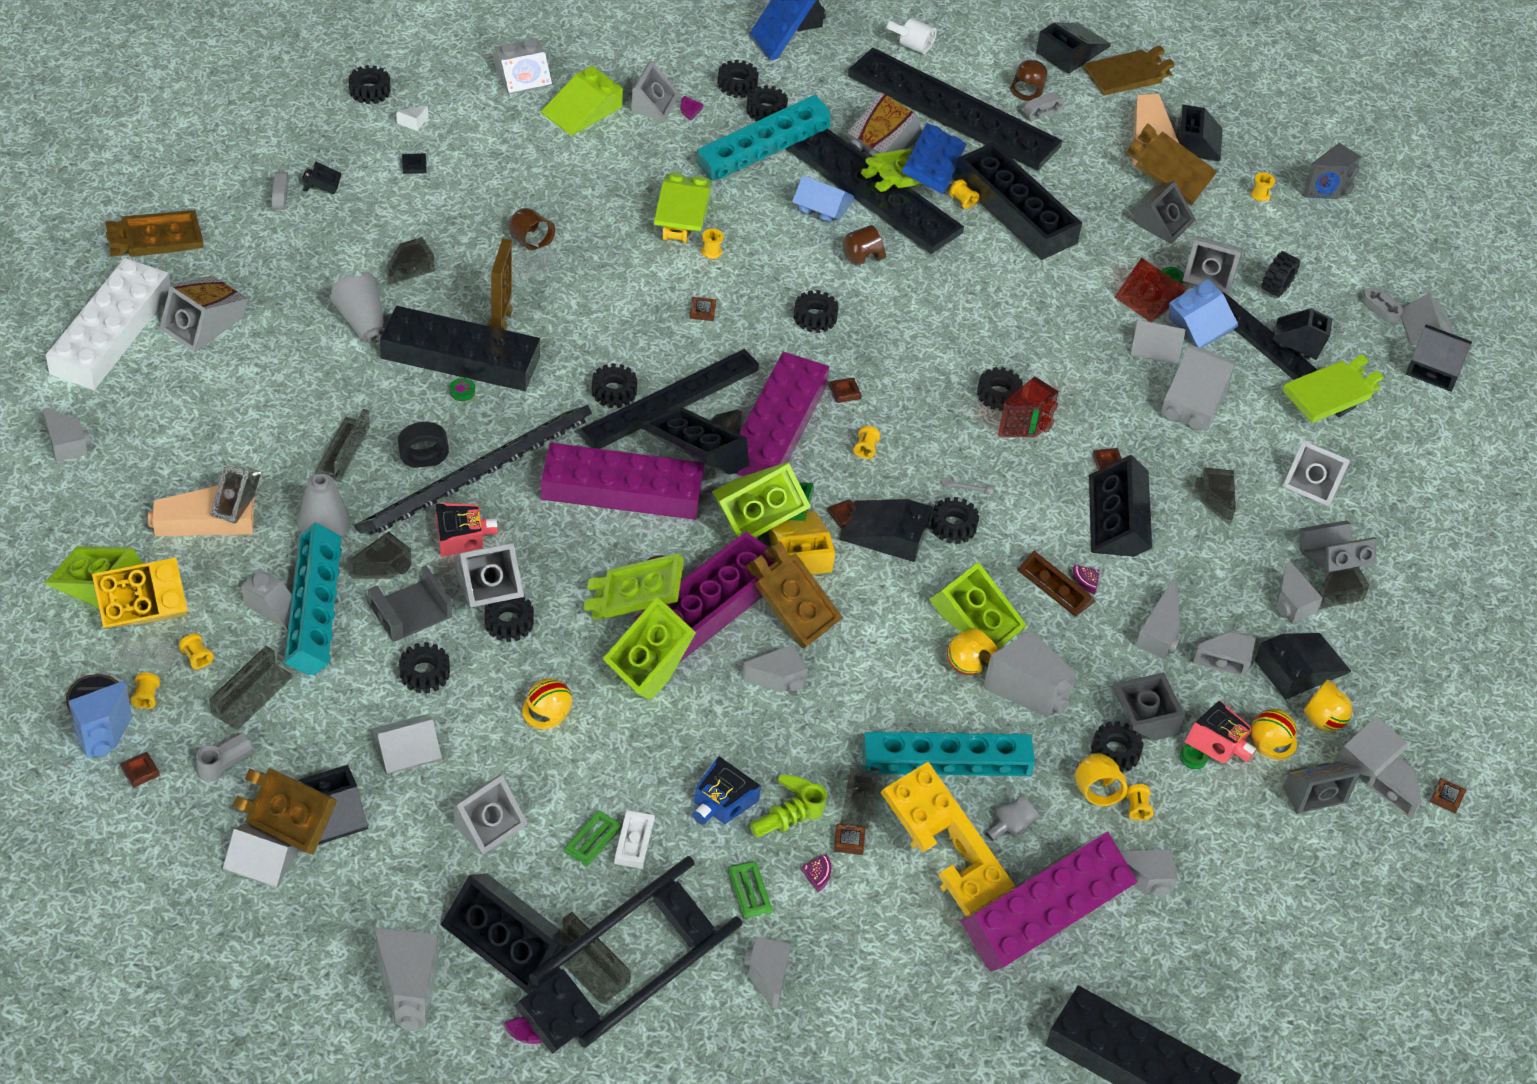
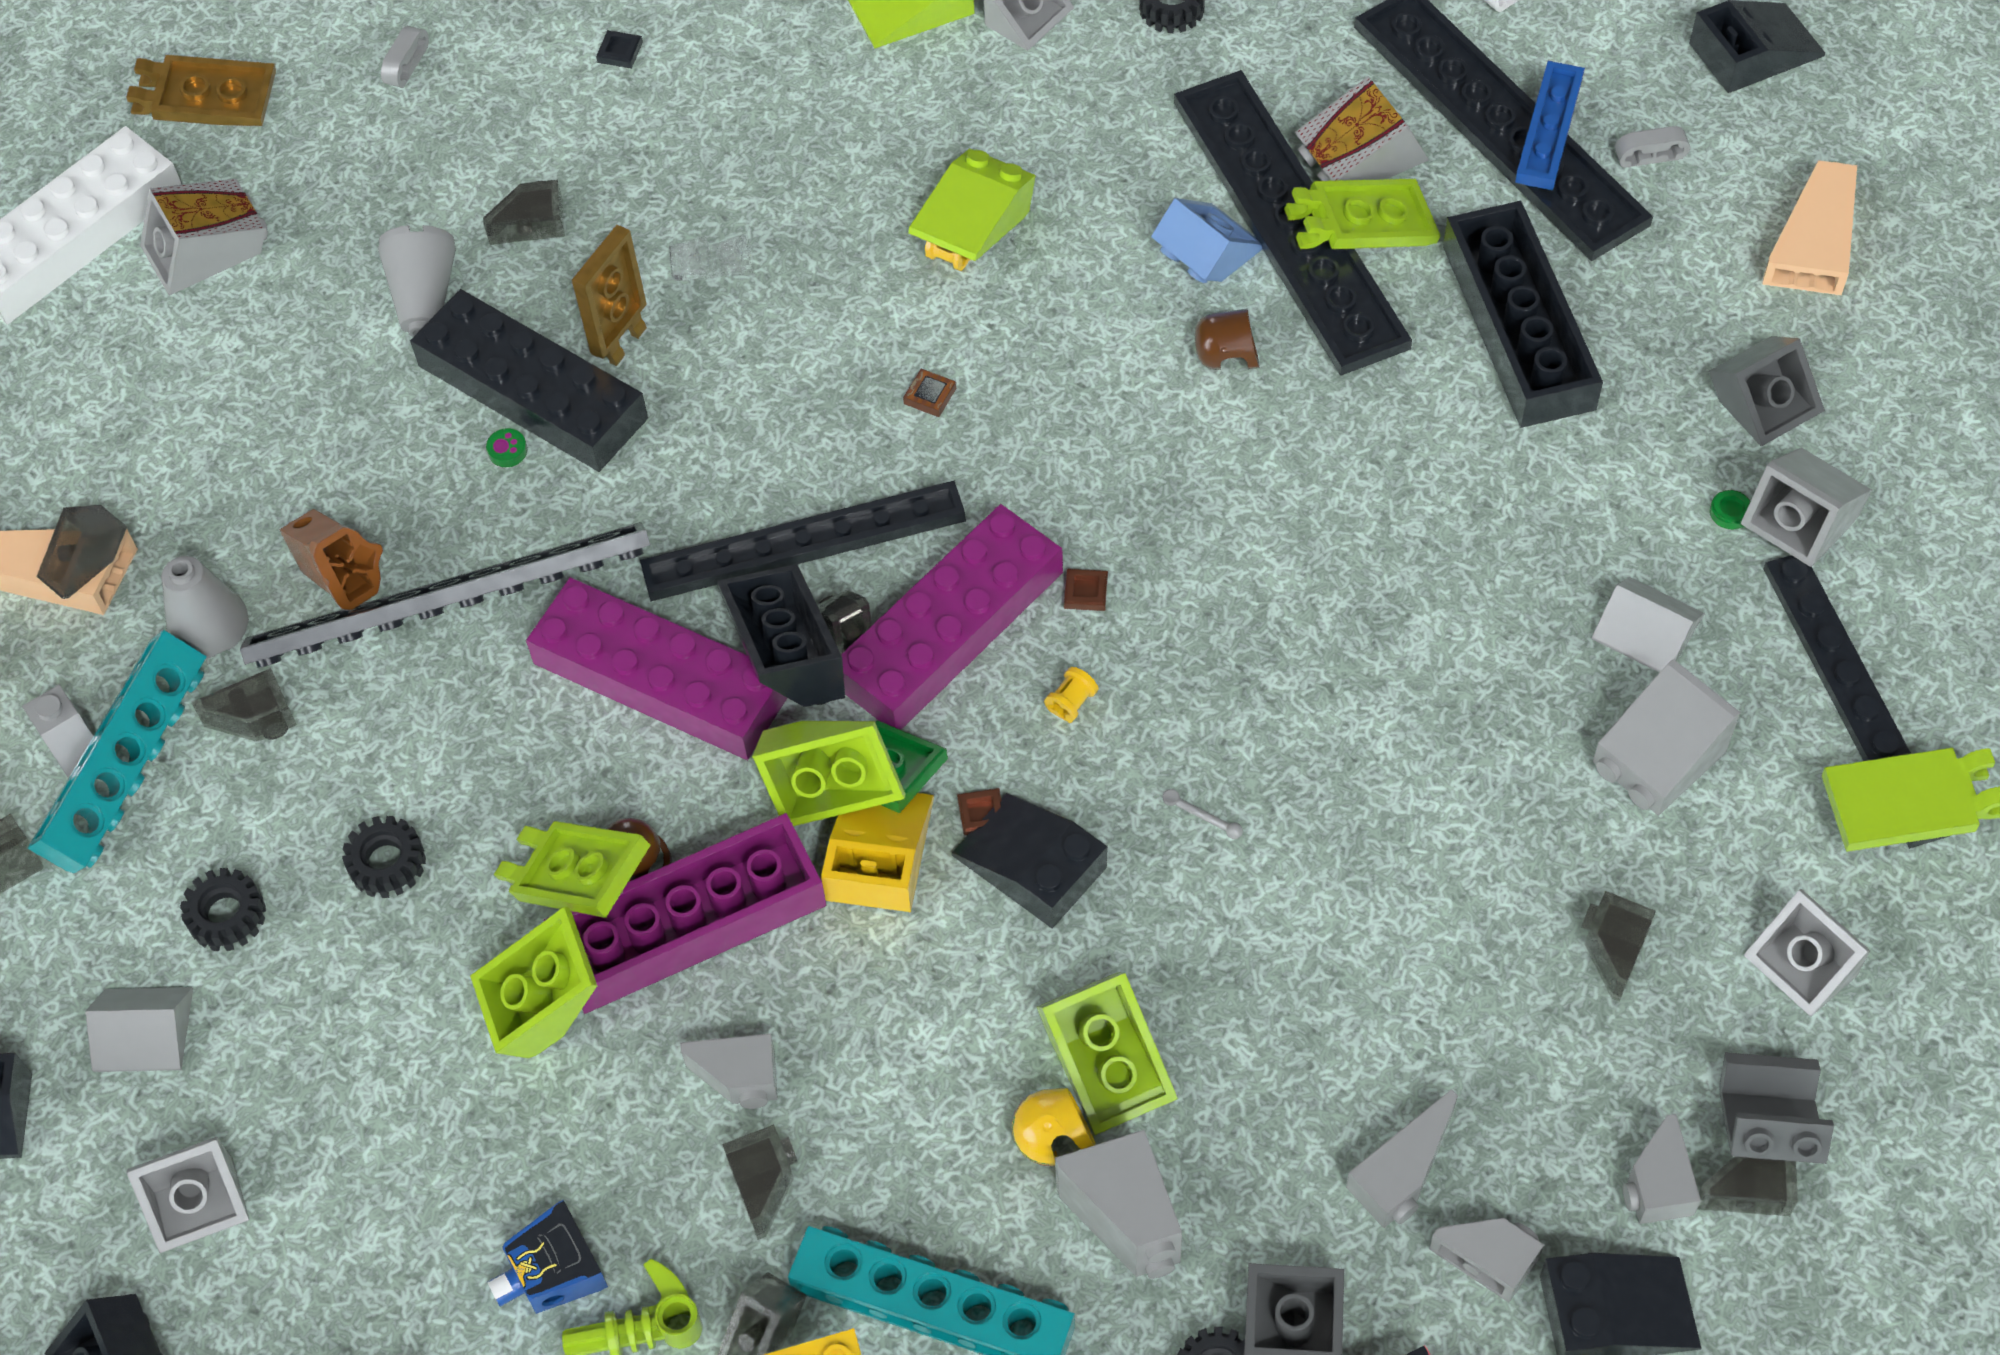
camera: 30 degrees right, 10 degrees up
(321, 177) = (472, 48): black bracket -> none
(344, 446) = (299, 495): clear smoke panel -> none
(394, 463) = (335, 558): none -> dark orange piece
(412, 607) = (254, 800): dark grey panel -> none
(423, 432) = (397, 528): black tyre -> none
(461, 528) = (385, 687): torso -> none
(489, 575) = (371, 782): light grey slope -> none
(526, 221) = (726, 183): reddish brown helmet -> none
(550, 699) = (365, 1023): yellow helmet -> none
(579, 854) = (335, 1290): bright green tile -> none
(614, 375) = (732, 515): black tyre -> none
(634, 839) = (382, 1300): white plate -> none
(690, 107) = (1077, 35): magenta tile -> none
(712, 243) = (992, 280): yellow bush -> none
(763, 138) = (1156, 115): teal brick -> none
(766, 95) = (1196, 39): black tyre -> none
(794, 595) = (815, 948): pearl gold tile -> none
(812, 320) = (1101, 457): black tyre -> none
(819, 718) = (762, 1174): none -> clear smoke slope
(934, 158) = (1414, 205): blue plate -> none
(954, 531) = (1151, 851): black tyre -> none
(963, 194) = (1441, 280): yellow bush -> none
(987, 103) = (1550, 125): none -> blue plate
(997, 378) = (1329, 671): black tyre -> none
(1029, 410) = (1352, 708): clear red slope -> none
(1032, 73) = (1653, 86): reddish brown helmet -> none
(1056, 582) = (1268, 1032): reddish brown slope -> none
(1086, 578) = (1319, 1038): magenta tile -> none
(1106, 457) = (1460, 827): copper tile -> none
(1120, 509) = (1433, 928): black slope -> none
(1129, 70) = (1834, 108): pearl gold tile -> none
(1149, 290) = (1676, 529): clear red slope -> none
(1169, 161) = (1819, 304): pearl gold tile -> none
(1199, 132) = (1898, 253): black slope -> none
(1203, 314) = (1744, 598): medium blue slope -> none
(1263, 184) = (1969, 377): yellow bush -> none
(1280, 274) = (1919, 552): black tyre -> none
(1304, 332) = (1906, 674): black slope -> none

